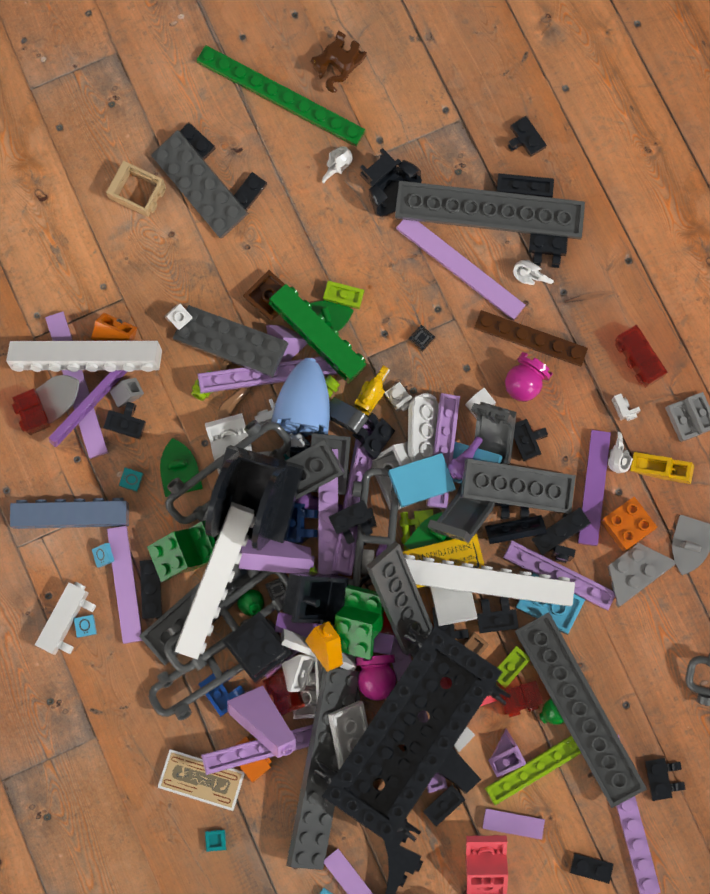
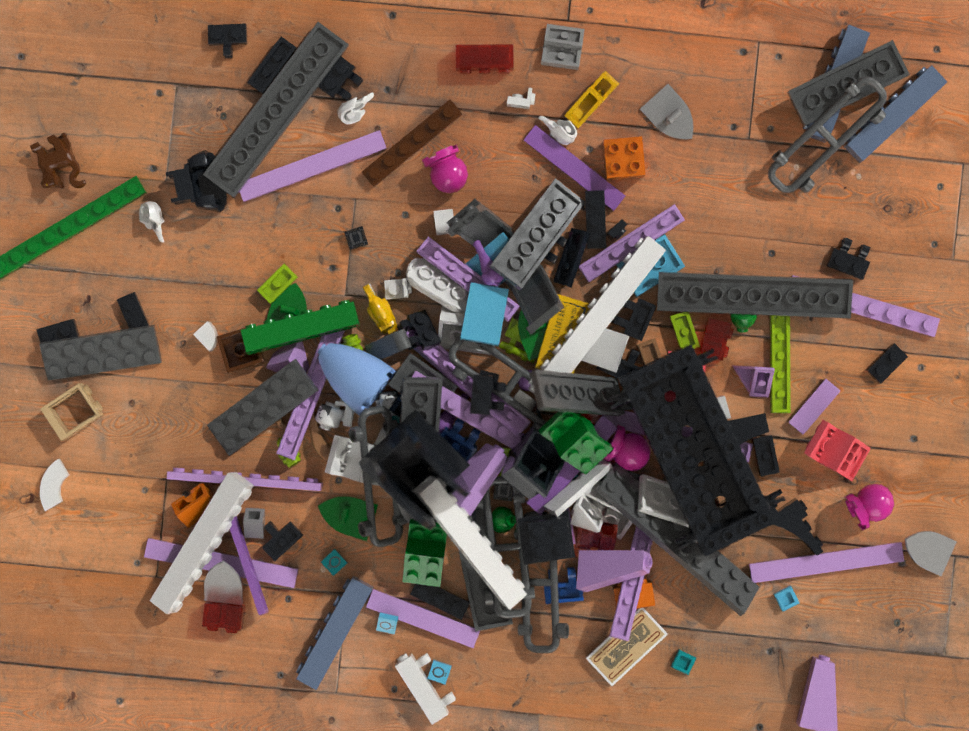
camera: 65 degrees left, 10 degrees up
(63, 208) = (51, 484): none -> white tile
(164, 370) = (272, 481): none -> lavender plate
(178, 316) = (213, 440): white bracket -> none
(255, 401) = (328, 416): none -> white head
(265, 261) = (207, 336): none -> white brick
(326, 646) = (580, 479): light orange slope -> none
(526, 440) = (499, 201): black plate -> none
(636, 571) = (666, 176): light grey wing -> none

